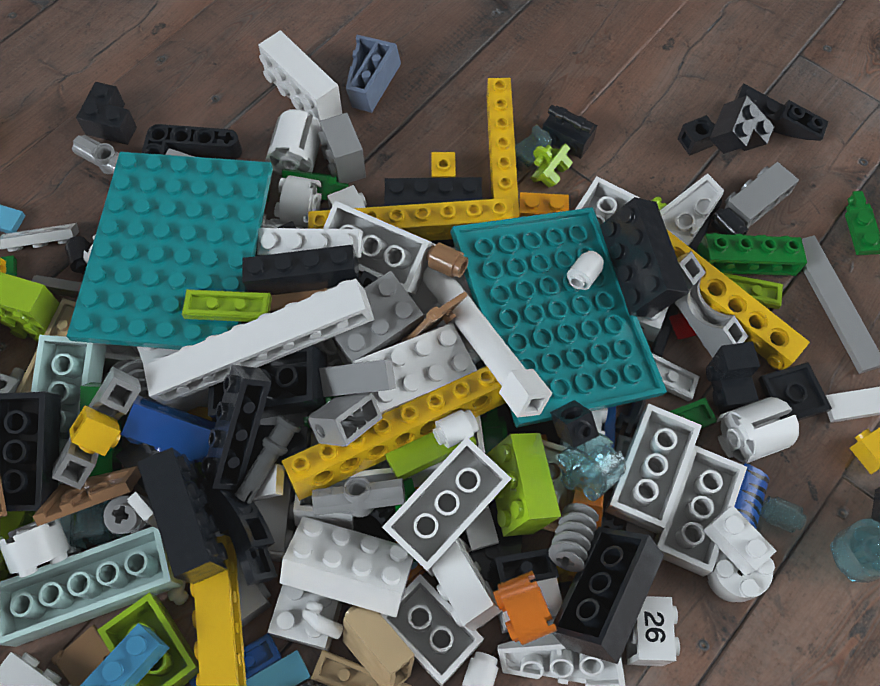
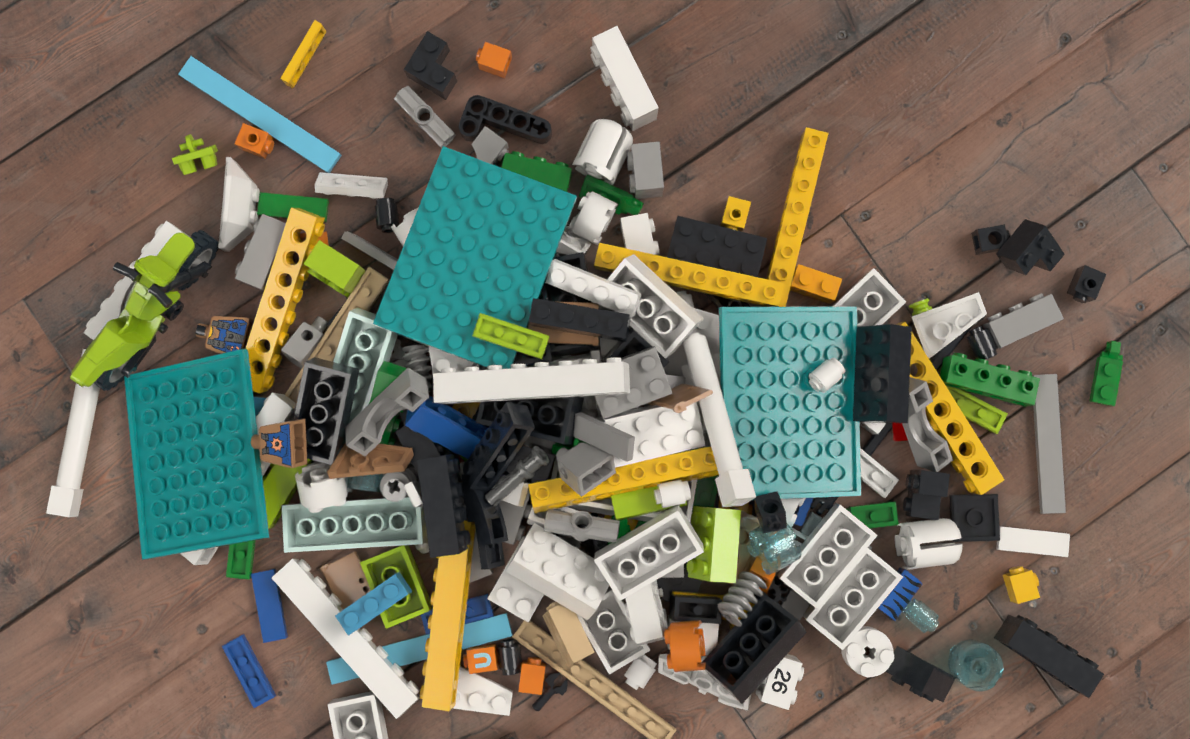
camera: 20 degrees right, 20 degrees up
(95, 431) = (385, 418): yellow brick -> none
(169, 97) = (494, 59): none -> orange brick
(320, 623) = (528, 606): white arm -> none
(371, 71) = (695, 84): sand blue wedge -> none
(447, 260) = (707, 341): medium nougat brick -> none
(525, 148) = (828, 210): clear light blue bracket -> none
(548, 160) = (836, 233): lime hips -> none
(569, 129) = (866, 203): black brick -> none
(739, 540) = (870, 636): white brick -> none
(787, 118) = (1077, 239): black slope -> none
(805, 150) = (1086, 284): none -> black brick
(812, 577) = (923, 677): none -> black brick

